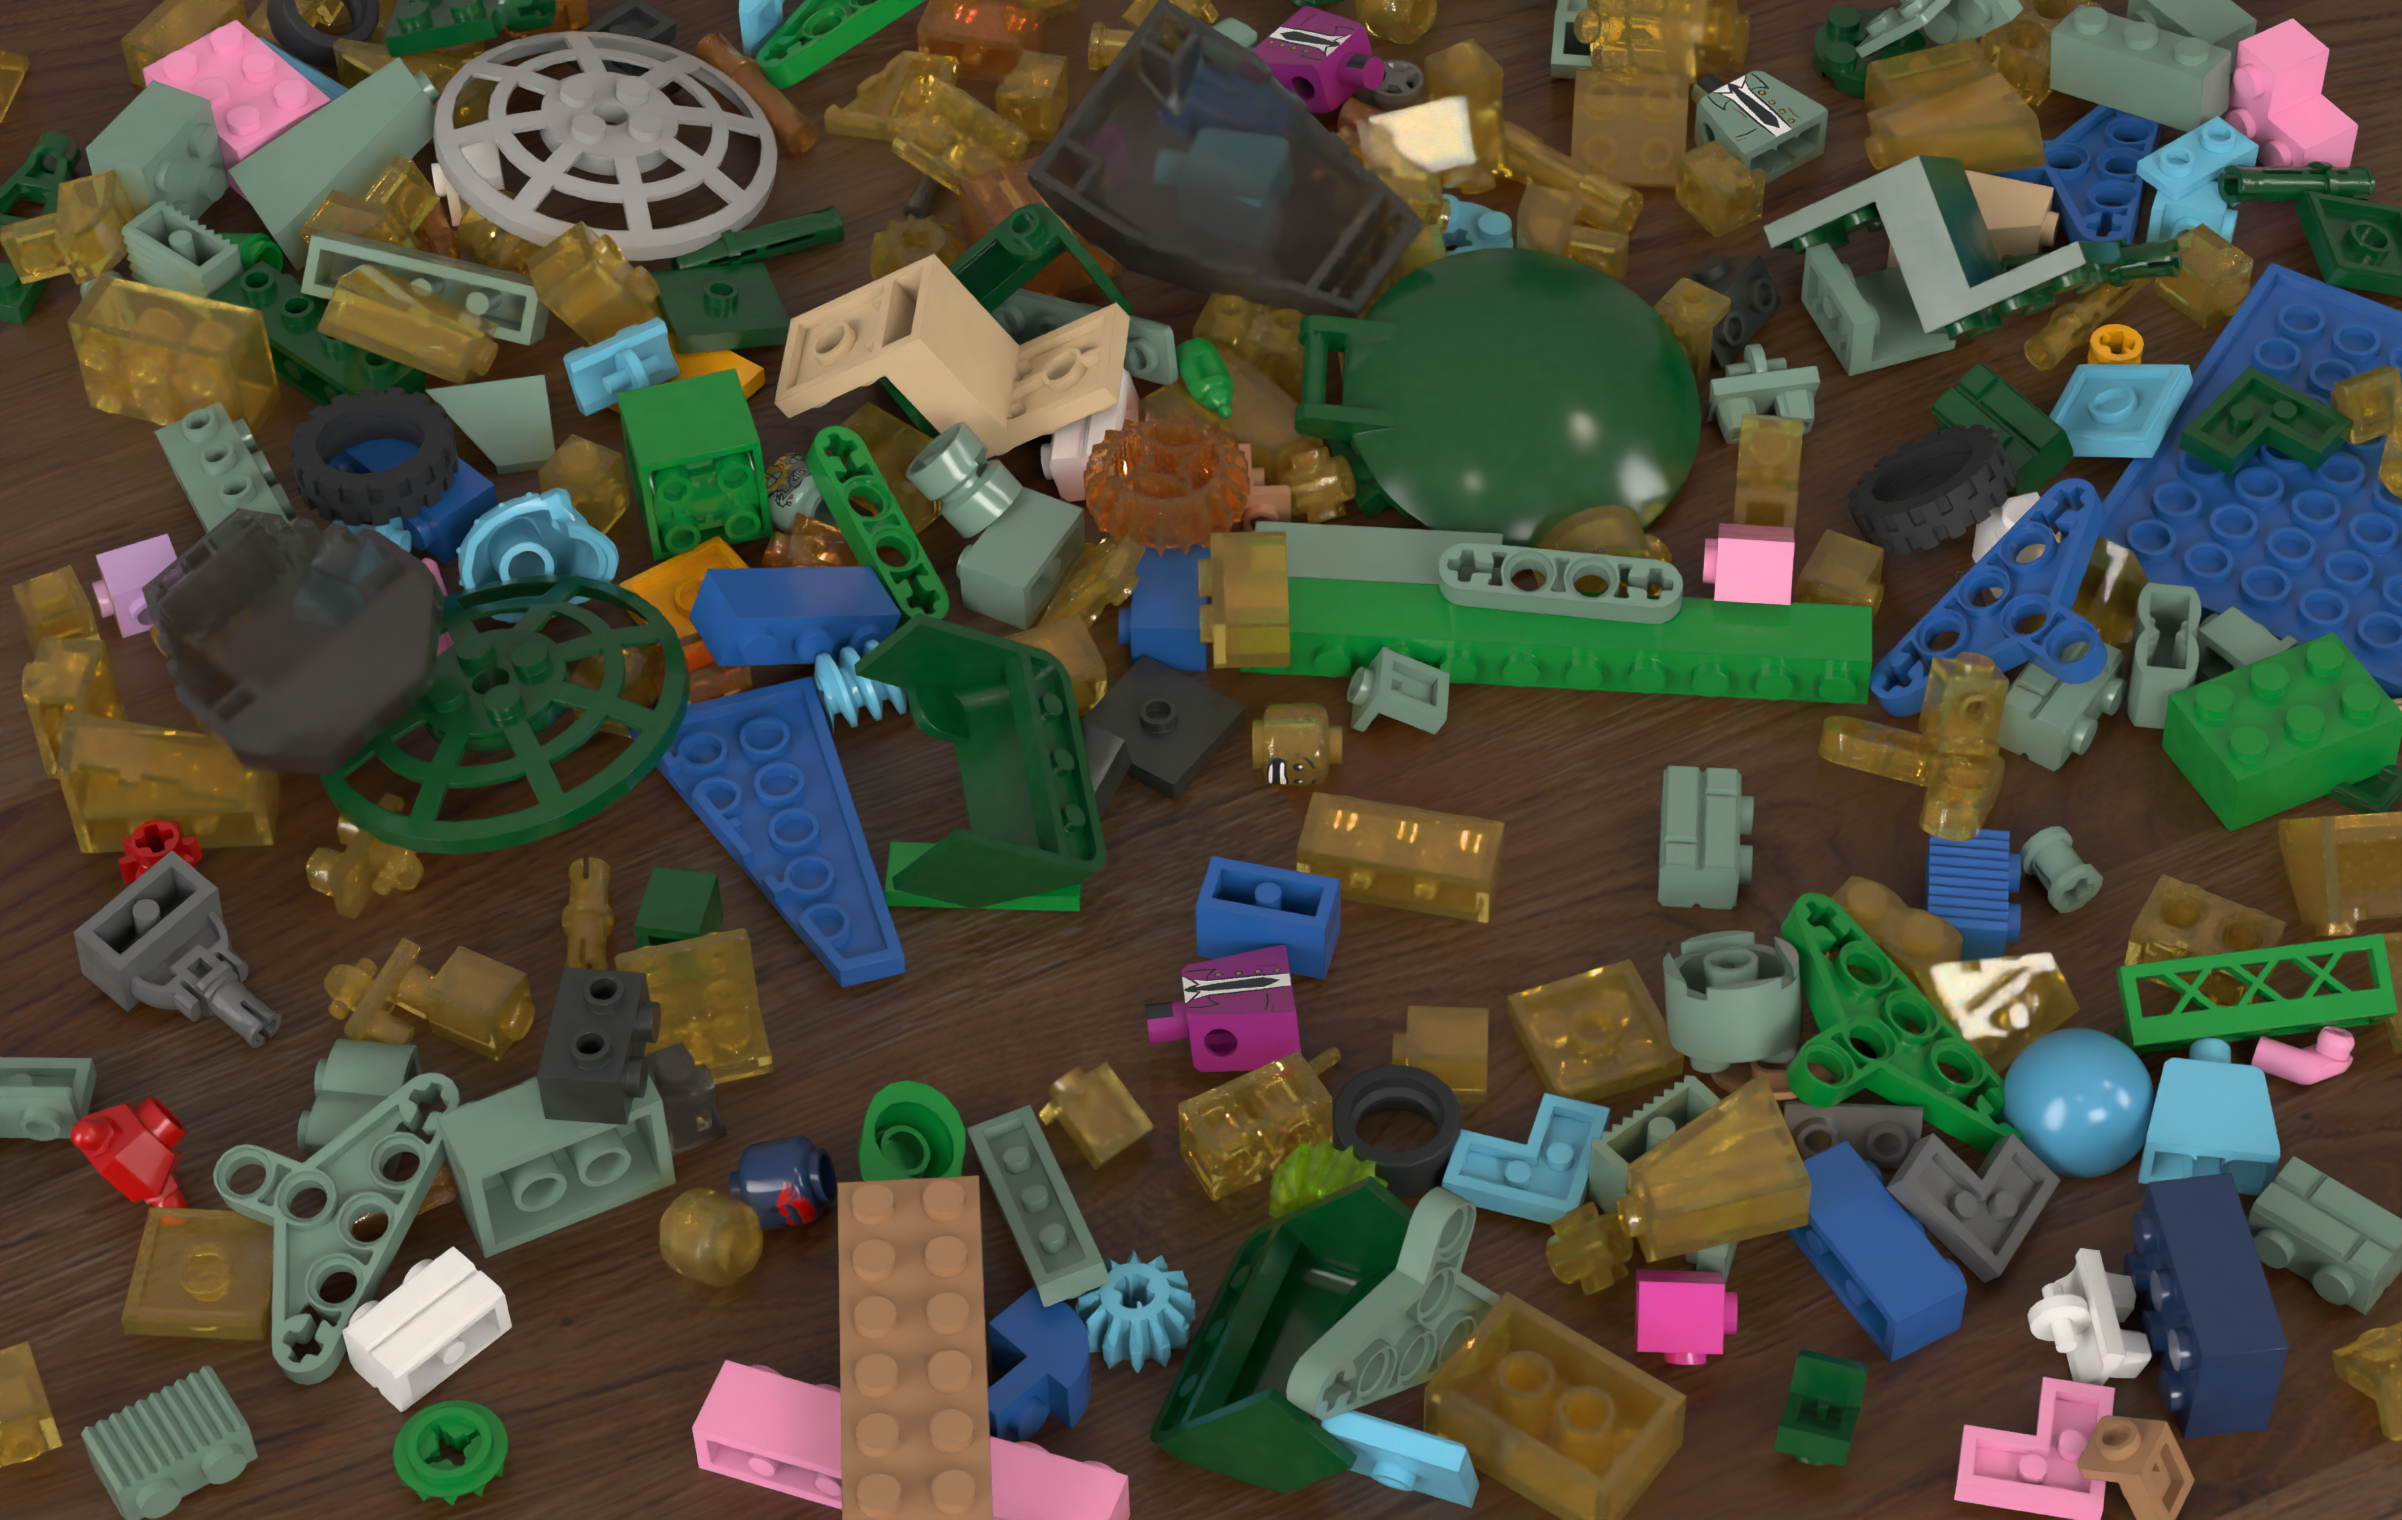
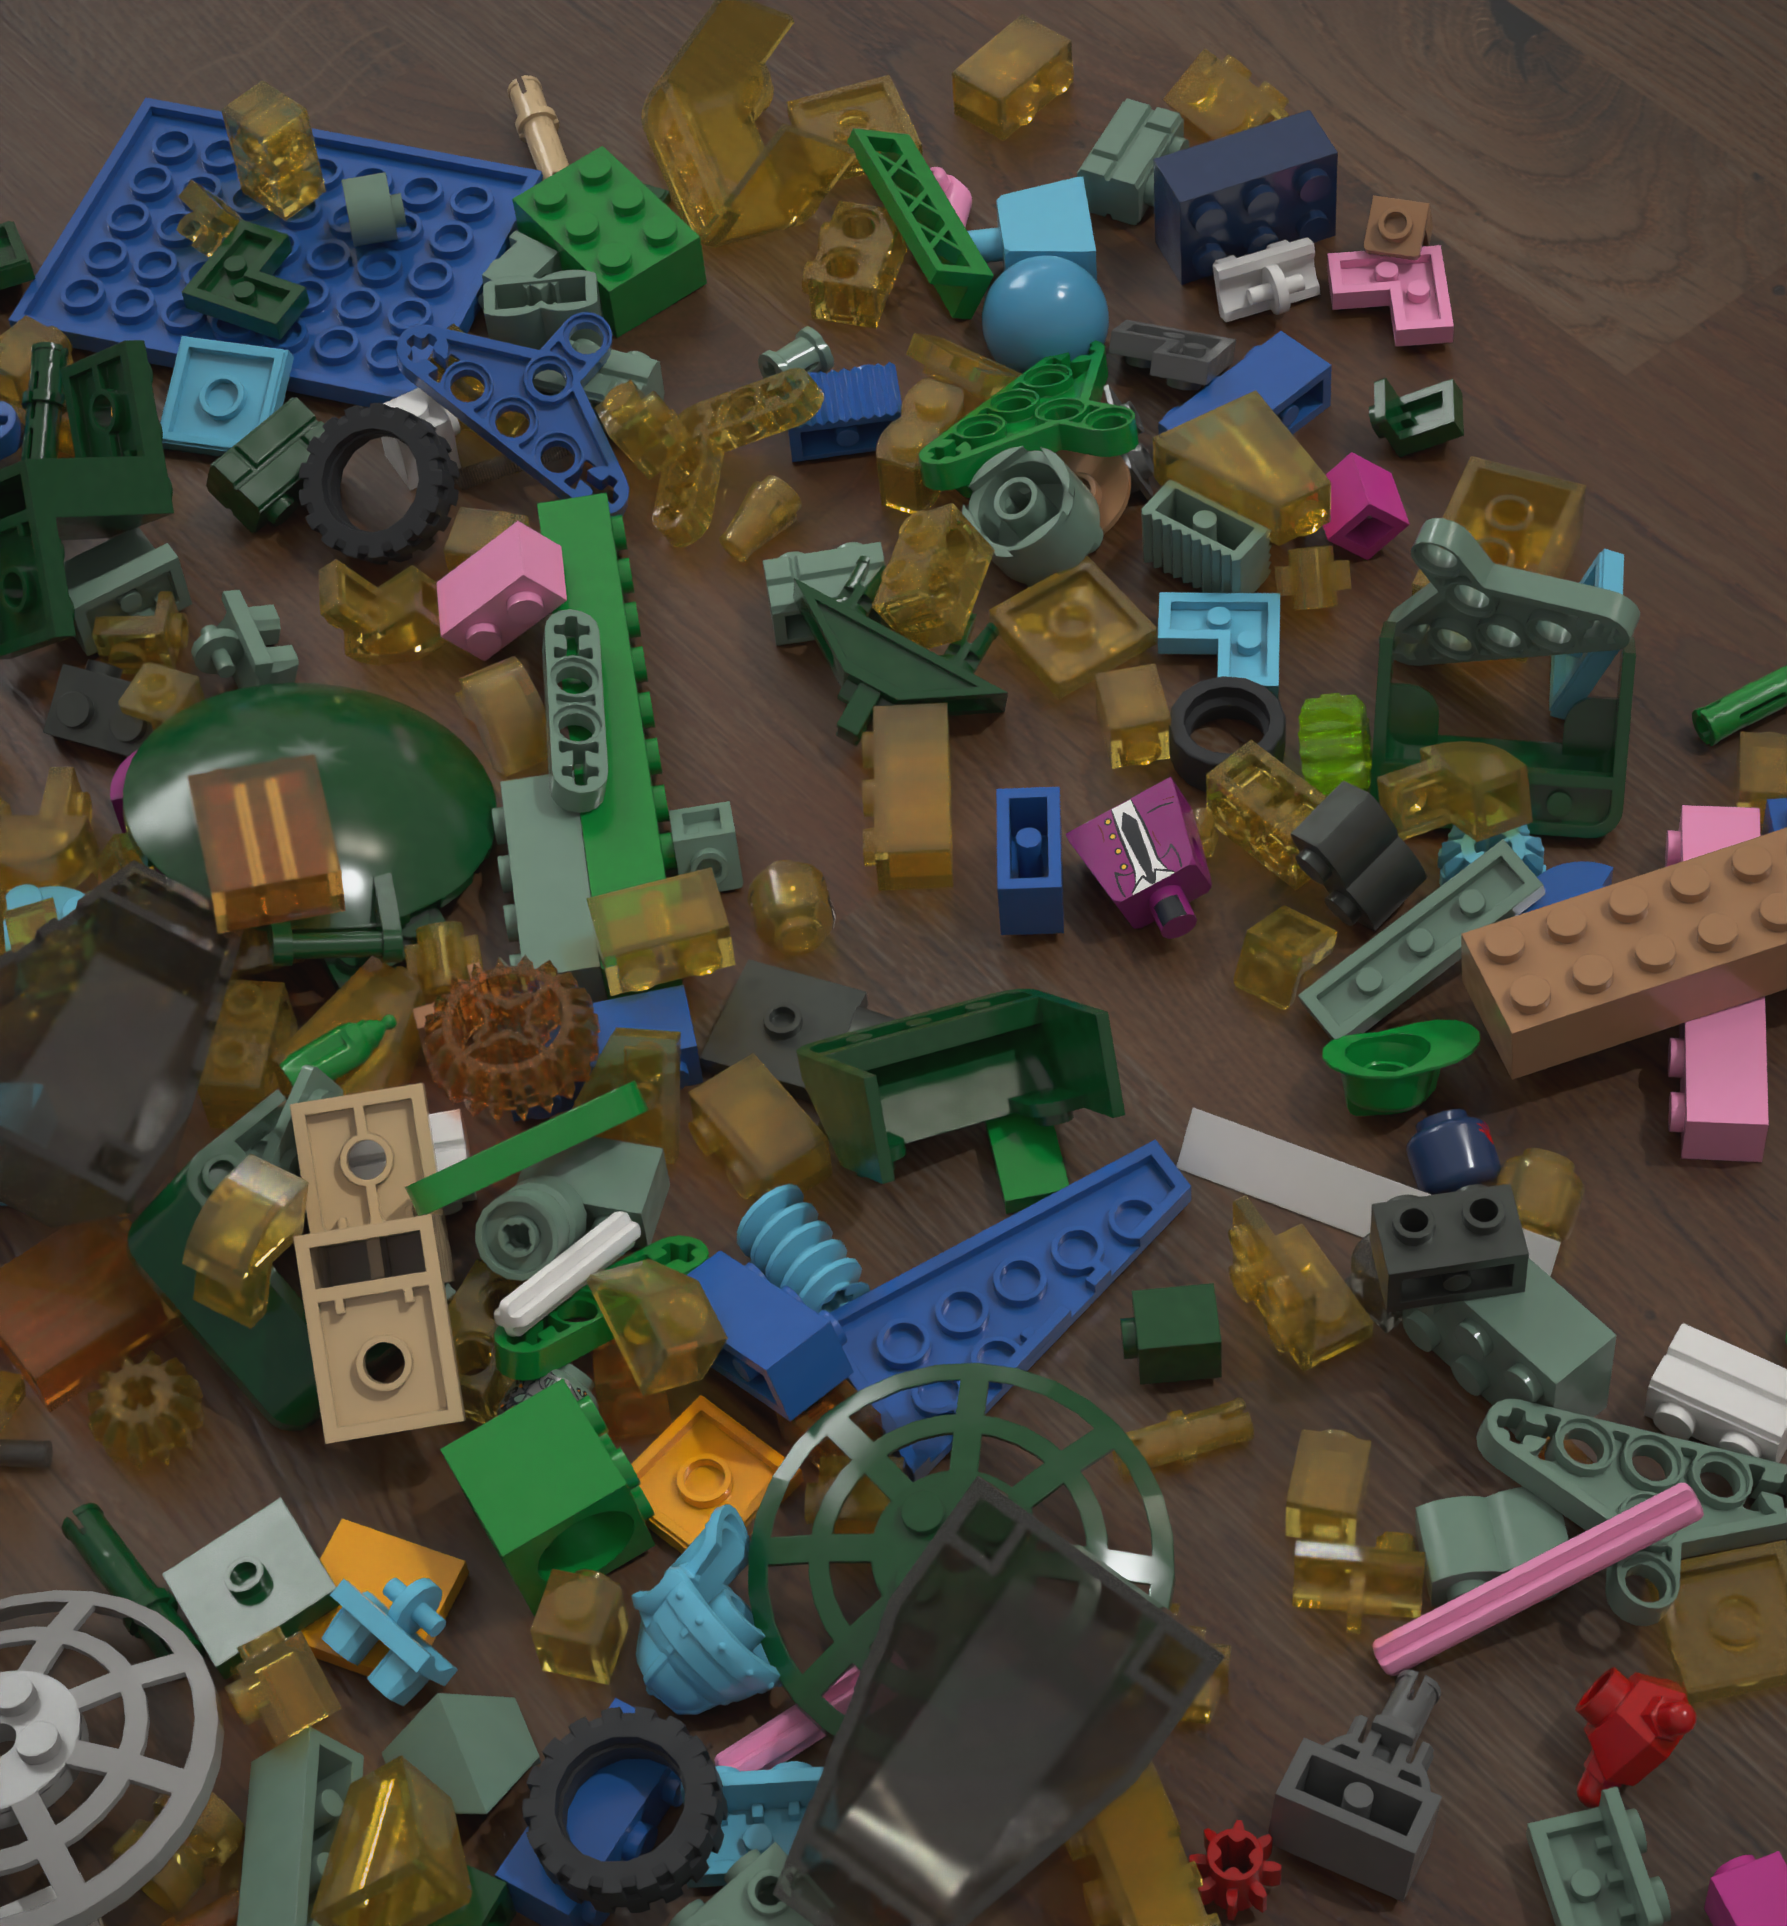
camera: 100 degrees left, 5 degrees up
(287, 1099) = (1538, 1579): none -> bright pink axle
(766, 1111) = (1302, 1178): none -> white sticker
(824, 530) = (659, 1323): none -> clear yellow slope
(899, 491) = (566, 1274): none -> white axle
(962, 231) = (241, 1235): none -> clear yellow brick
(1032, 473) = (526, 1149): none -> green beam
(1156, 1164) = (1357, 857): none -> pearl dark grey brick
(1200, 1260) = (1459, 784): none -> clear yellow brick
(1408, 301) = (266, 843): none -> clear orange brick
(1566, 843) = (887, 668): none -> dark green connector
(1639, 891) = (933, 577): none -> clear yellow brick
(1795, 336) = (135, 640): none -> clear yellow bracket
(1835, 807) = (762, 515): none -> clear yellow cone
(2350, 524) = (372, 209): none -> sand green plate

